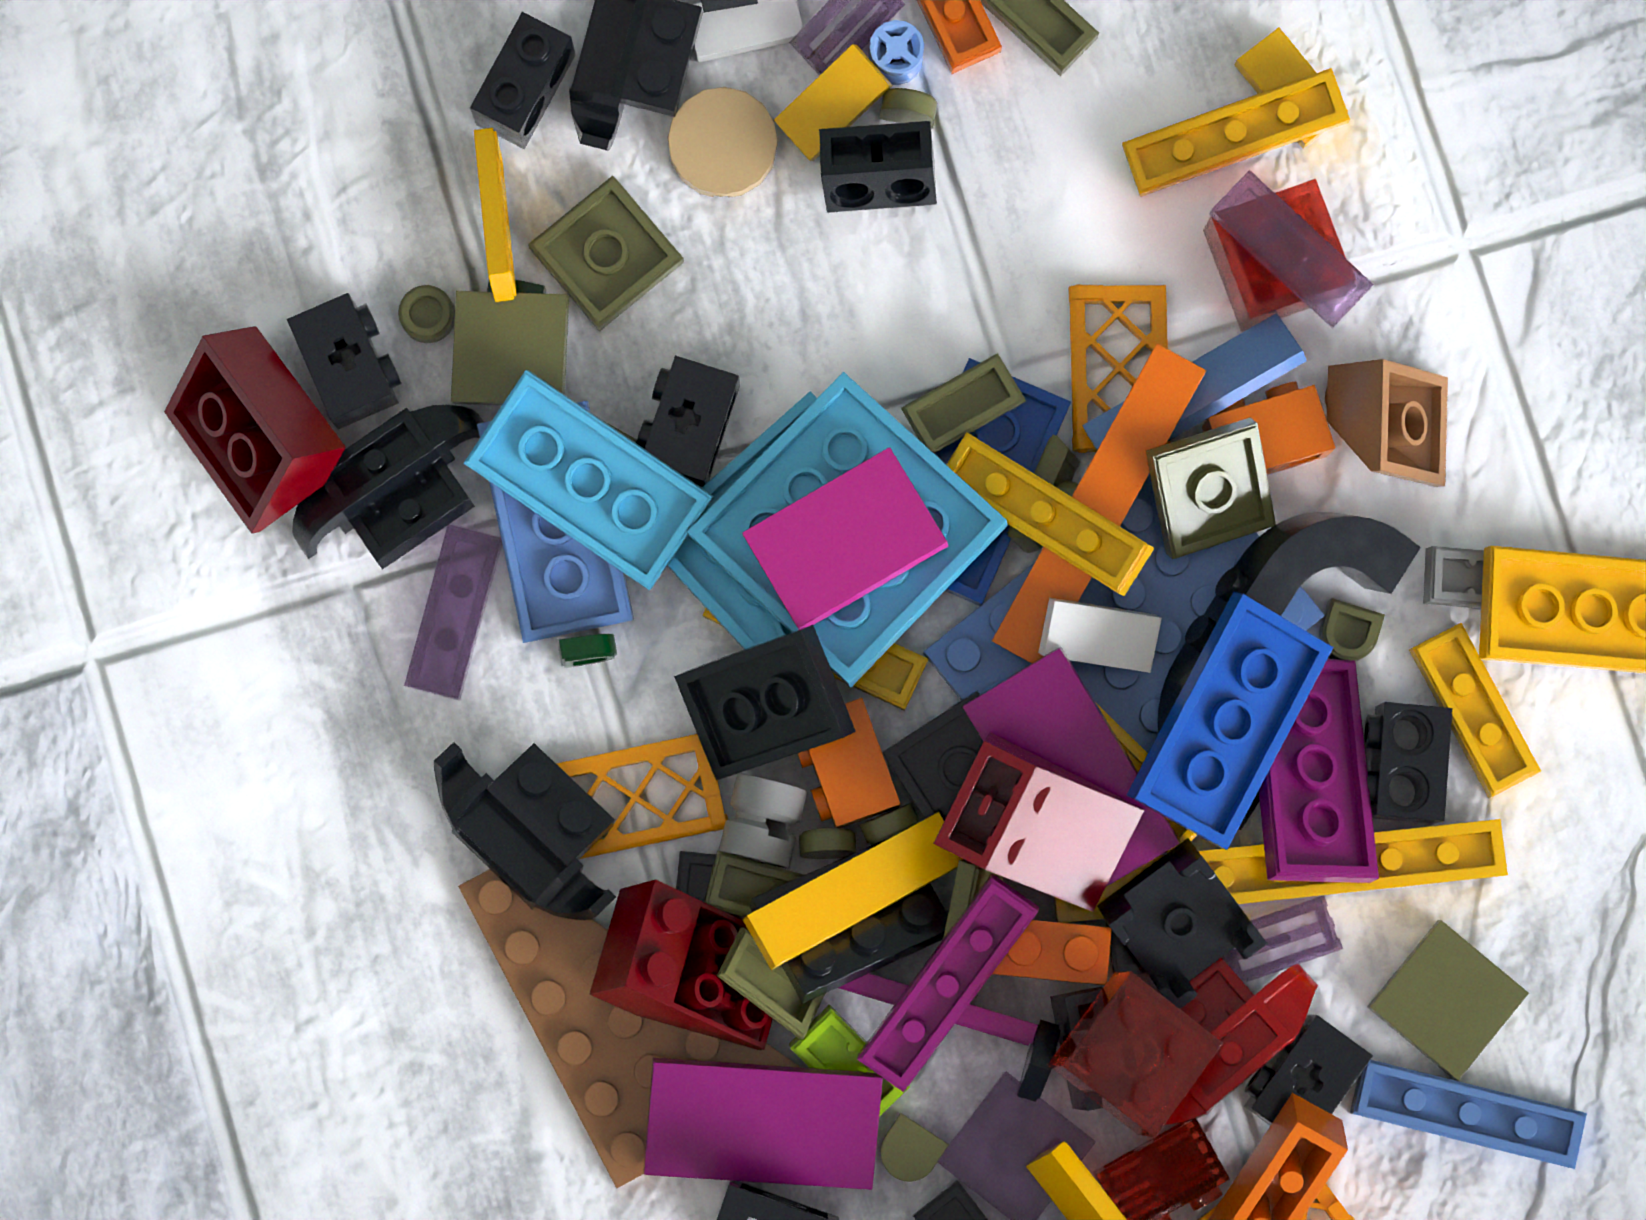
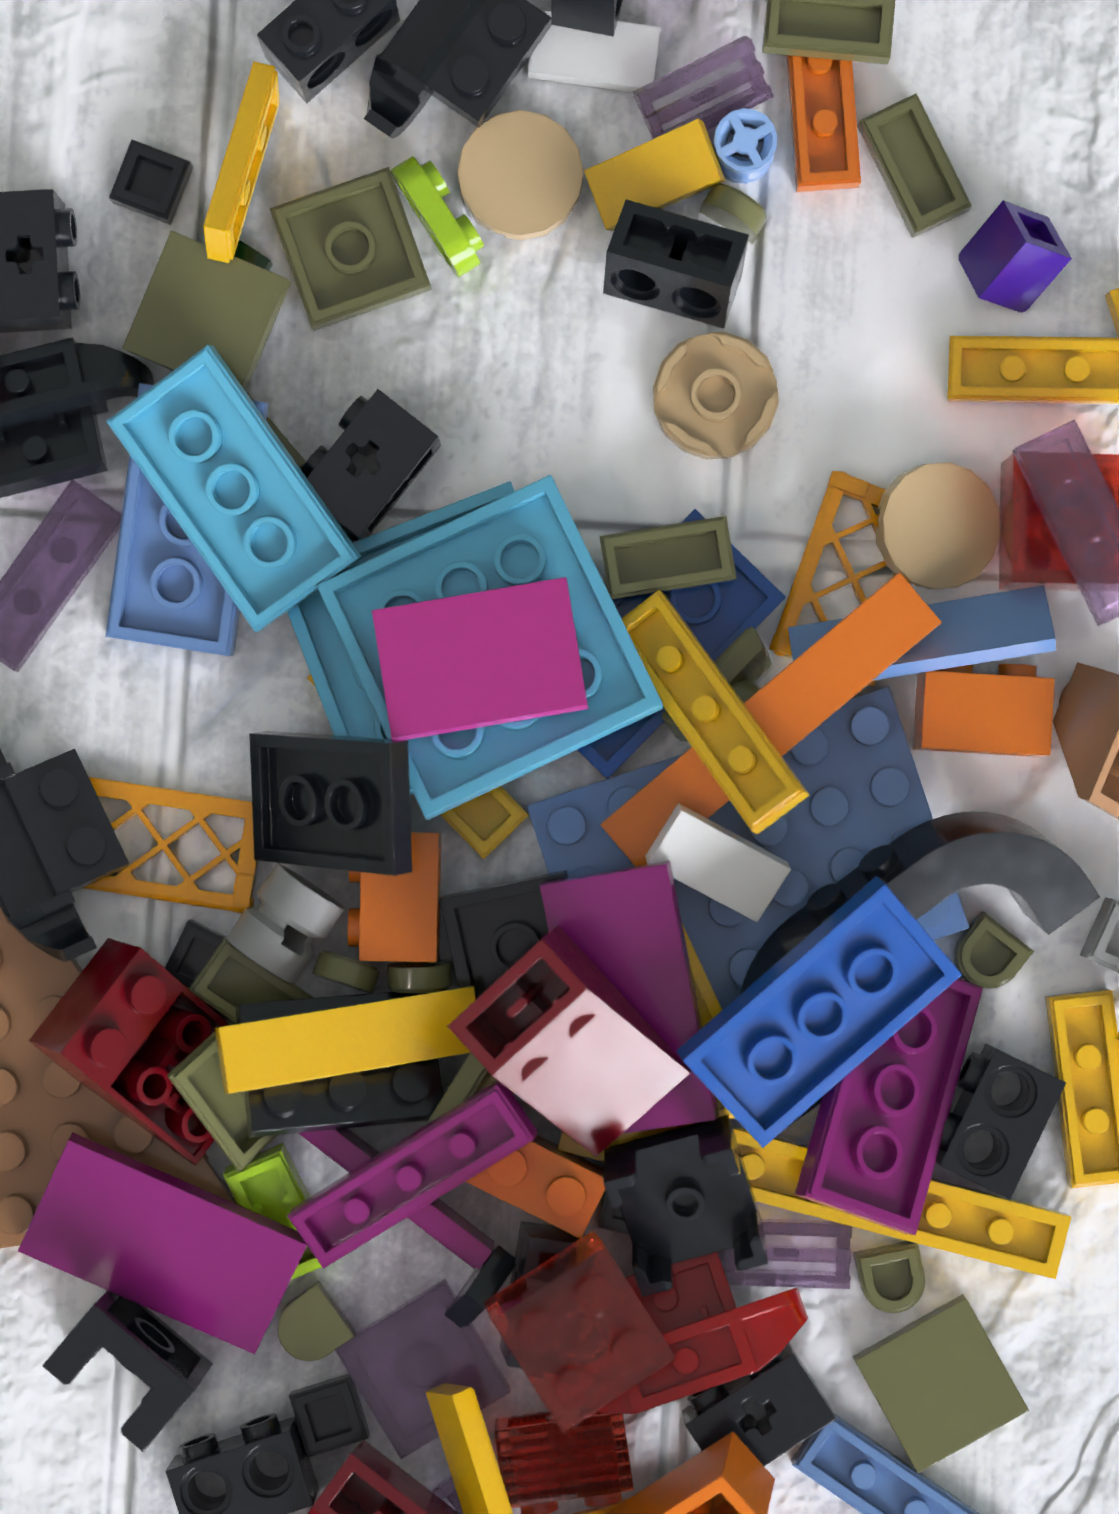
camera: 25 degrees right, 5 degrees up
(421, 259) = (151, 182): none -> black tile
(427, 314) = (134, 243): olive tile -> none
(587, 650) = (168, 669): dark green tile -> none
(650, 185) = (424, 192): none -> lime plate
(949, 261) = (715, 395): none -> tan tile
(1149, 61) = (1013, 257): none -> dark purple panel
(1172, 298) = (938, 525): none -> tan tile
(1211, 488) = (898, 749): olive tile -> none
(1373, 926) = (891, 1276): none -> olive tile

